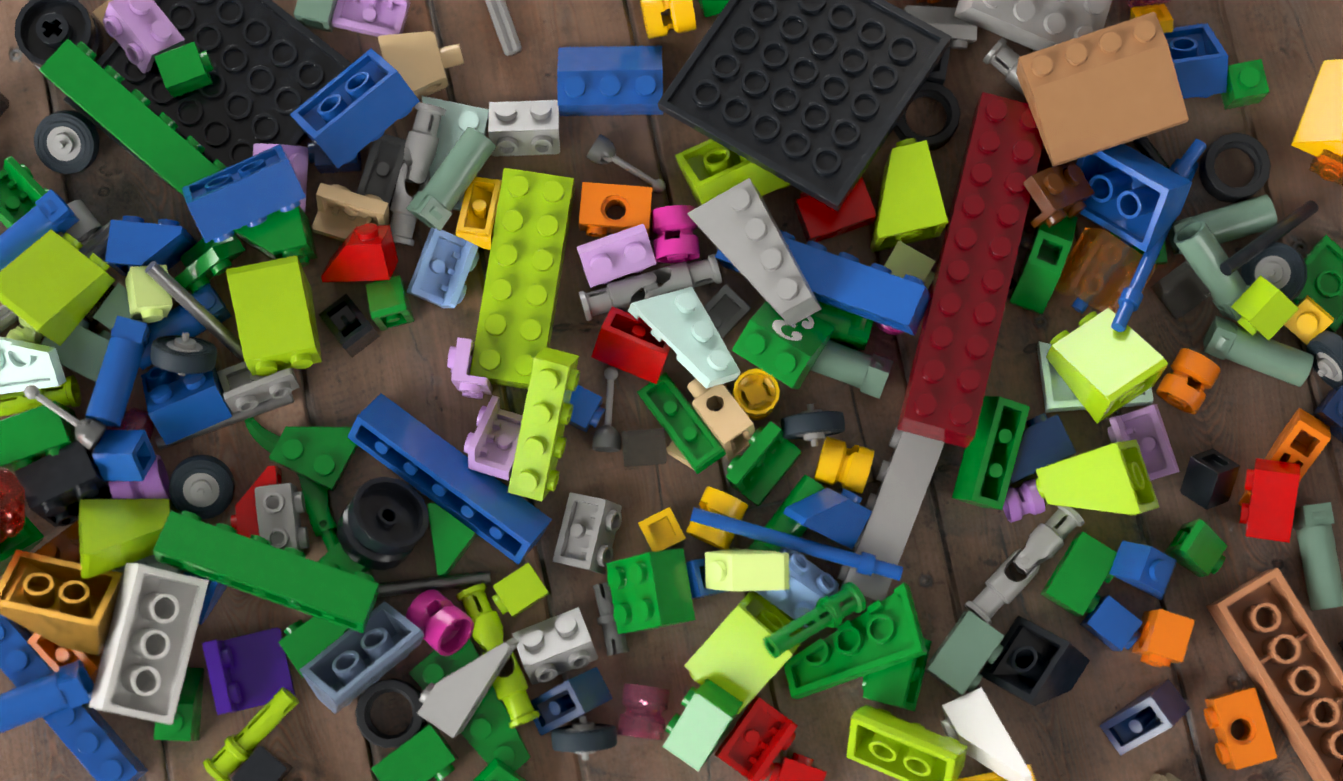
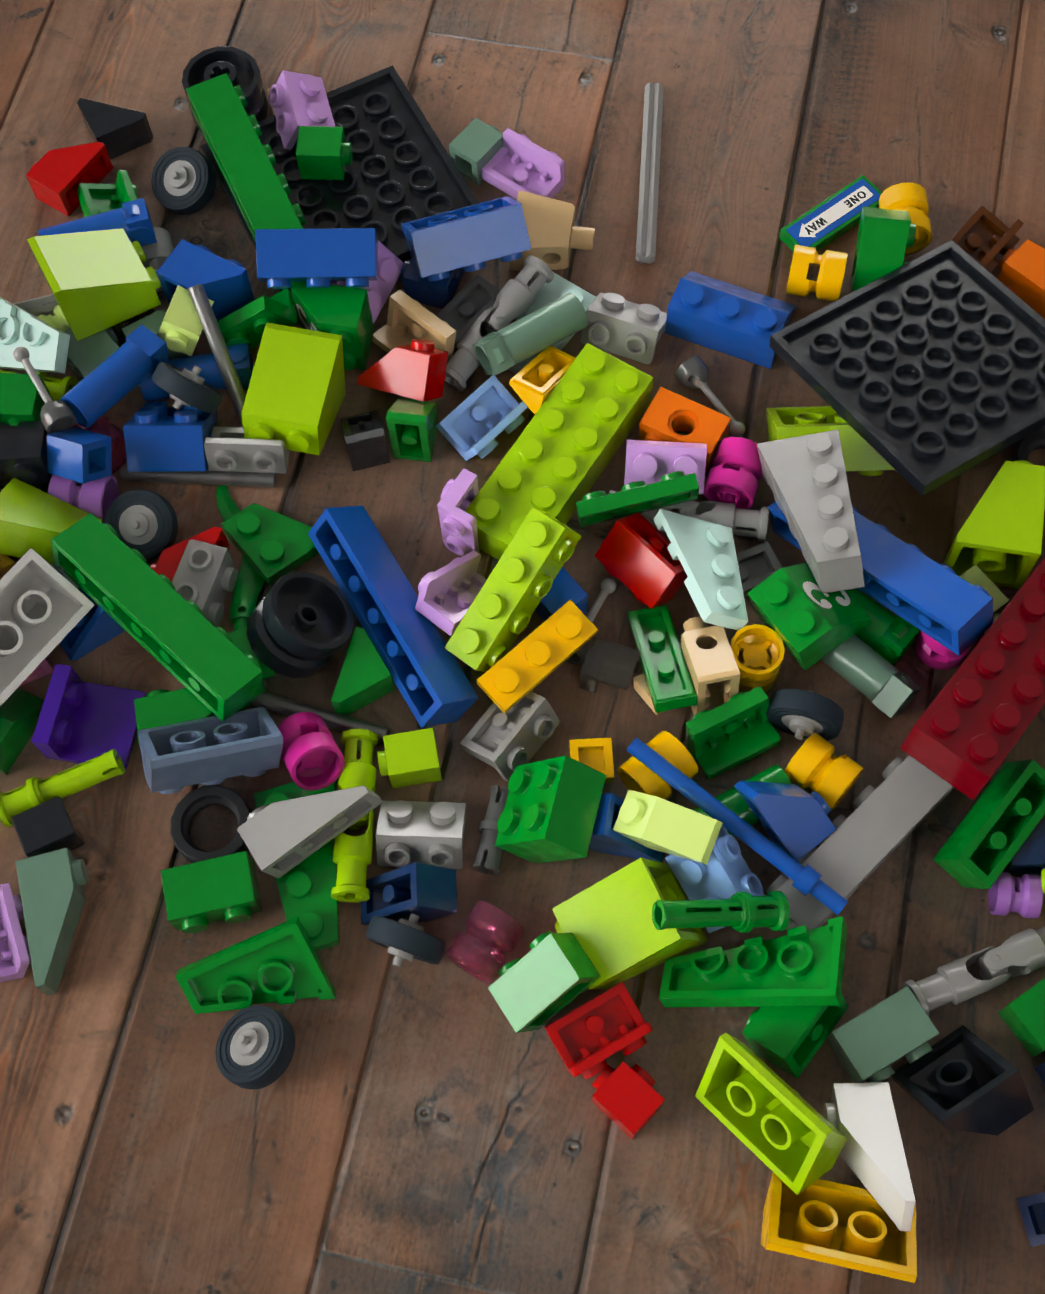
camera: 30 degrees right, 15 degrees down
(585, 468) = (537, 656): none -> yellow plate
(606, 298) = (637, 497): none -> green plate
(823, 222) = (916, 519): red brick -> none

